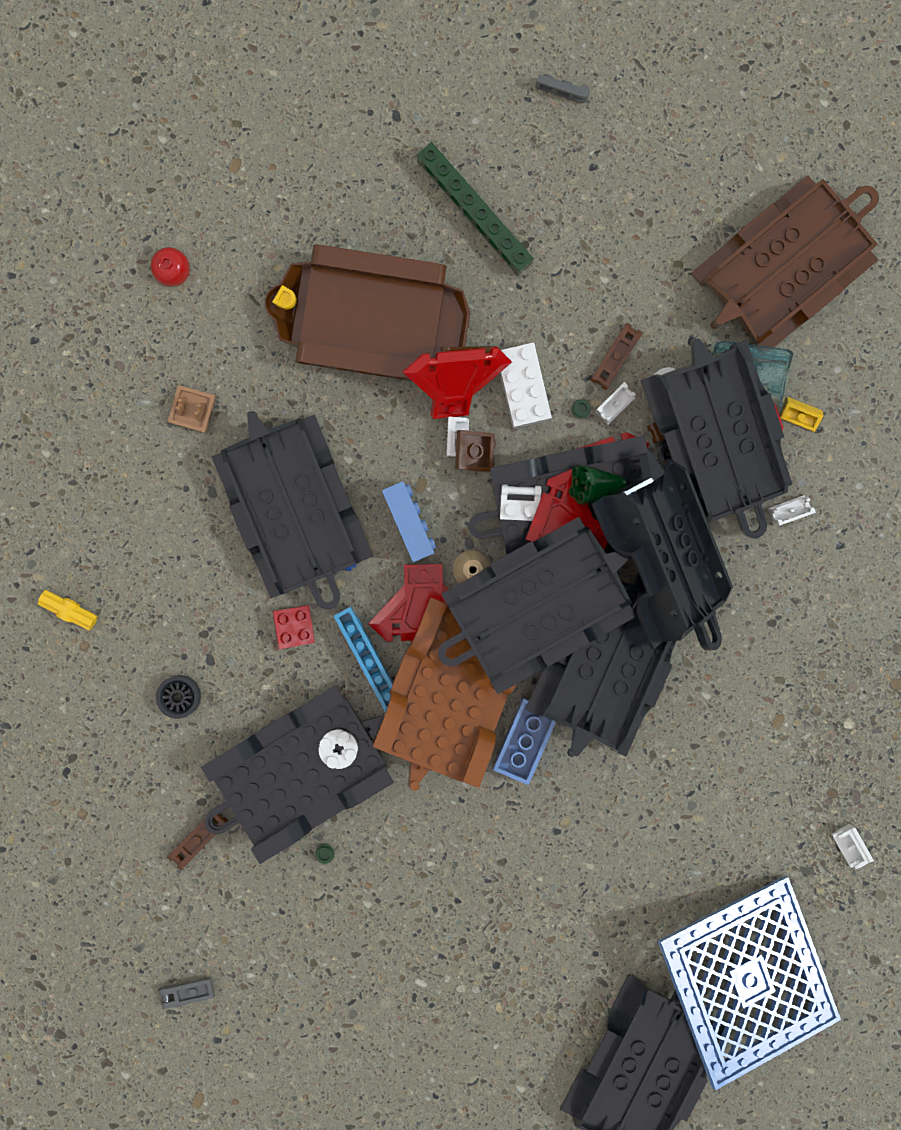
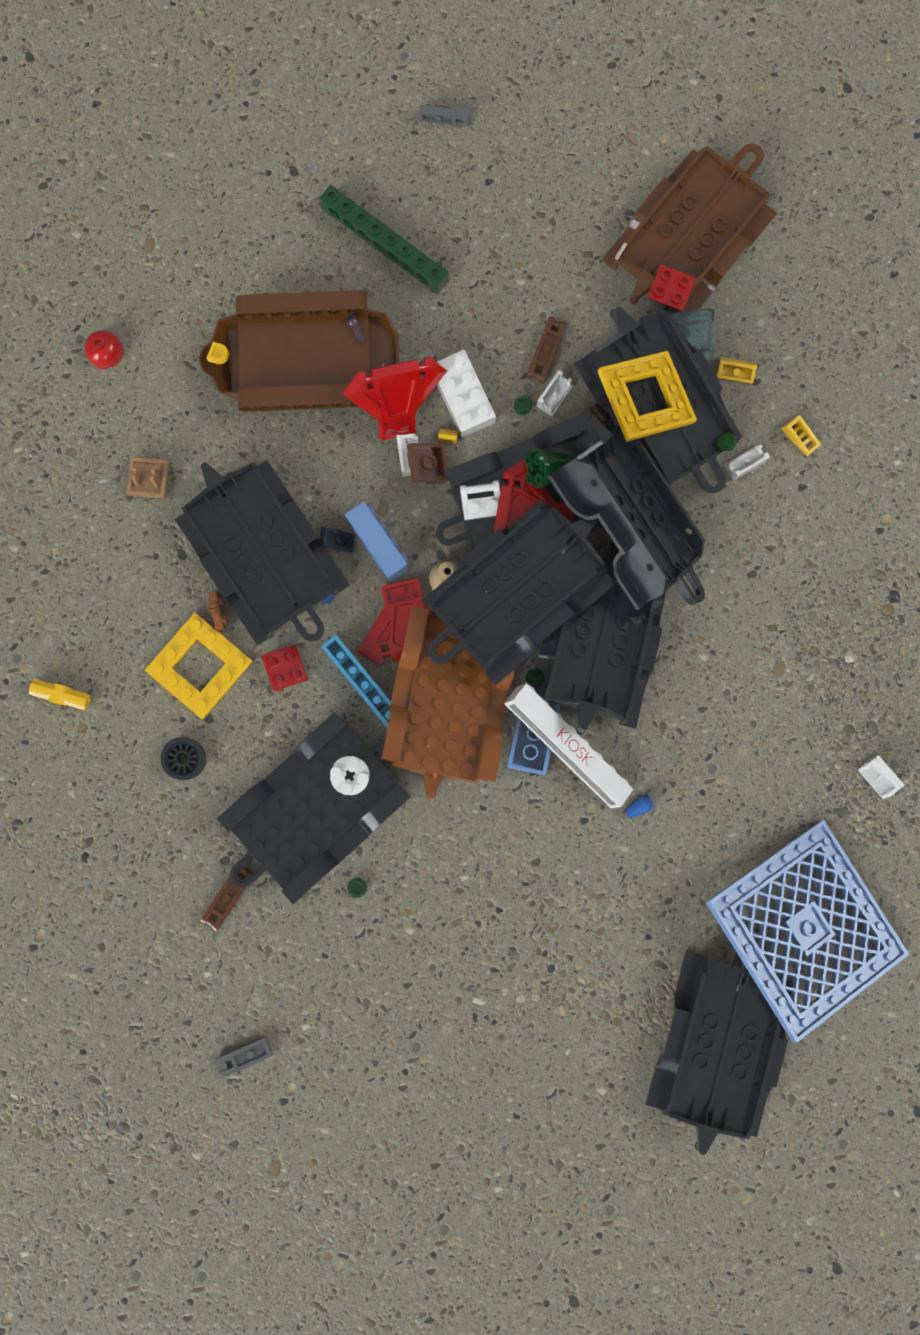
camera: 15 degrees left, 5 degrees down
(211, 571) = (193, 630): none -> yellow plate
(236, 558) = (219, 618): none -> dark orange plate
(369, 510) = (336, 539): none -> black plate
(427, 294) = (353, 323): none -> clear purple piece
(500, 424) = (448, 436): none -> yellow slope
(538, 689) = (535, 677): none -> dark green plate
(556, 762) = (568, 745): none -> white brick
(613, 829) = (639, 806): none -> blue cone
(685, 462) = (635, 426): none -> yellow plate
(755, 323) = (671, 287): none -> red hinge
(776, 491) = (727, 441): none -> dark green plate
(853, 483) = (796, 439): none -> yellow slope

